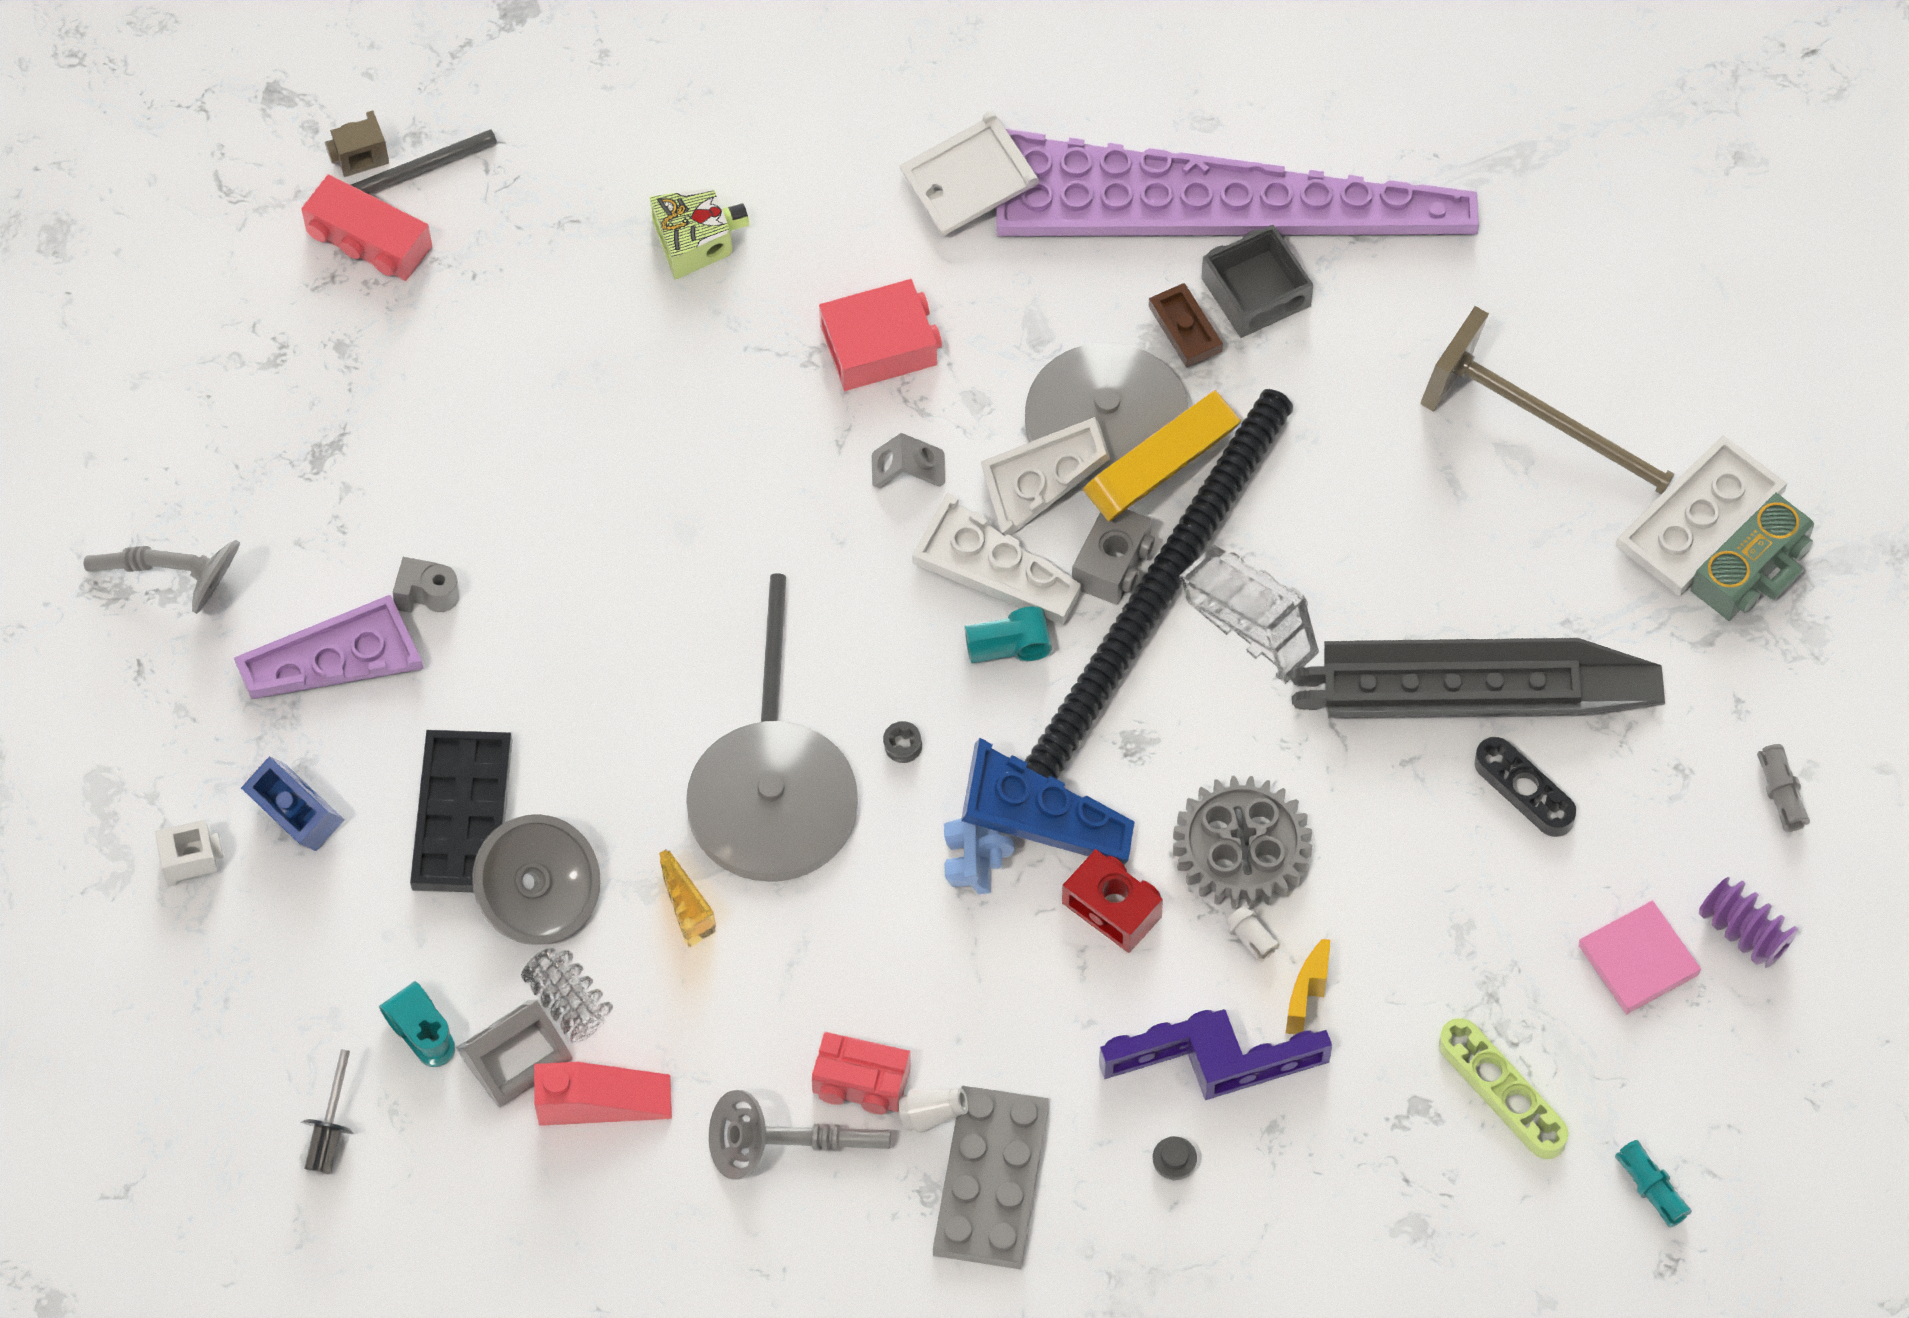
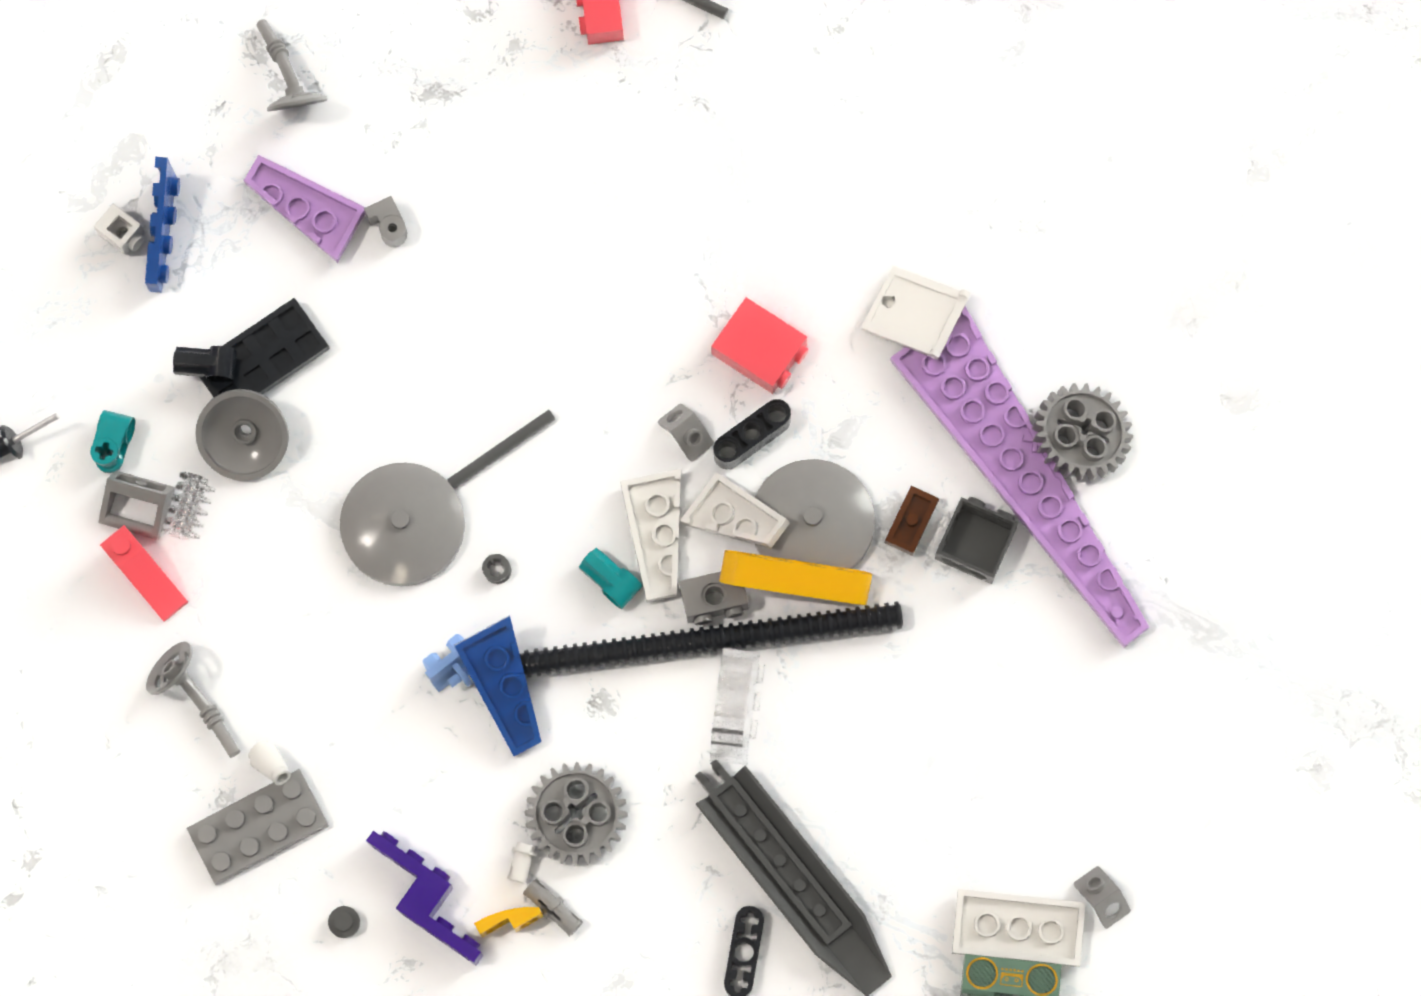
camera: 55 degrees right, 15 degrees up
(220, 803) = (160, 223): none -> blue wing
(292, 803) = (189, 263): blue brick -> none
(431, 850) = (214, 363): none -> black piece
(691, 909) = (295, 530): clear yellow slope -> none
(695, 228) = (749, 182): torso -> none
(860, 1073) = (262, 706): coral brick -> none
(971, 419) = (758, 420): none -> black beam
(1122, 921) = (473, 749): red brick -> none
(1223, 115) = (1075, 456): none -> light grey gear
(1357, 933) = (553, 907): none -> light grey pin
(1458, 361) = (1006, 707): dark tan tile -> none
(1723, 415) = (1101, 893): none -> light grey bracket

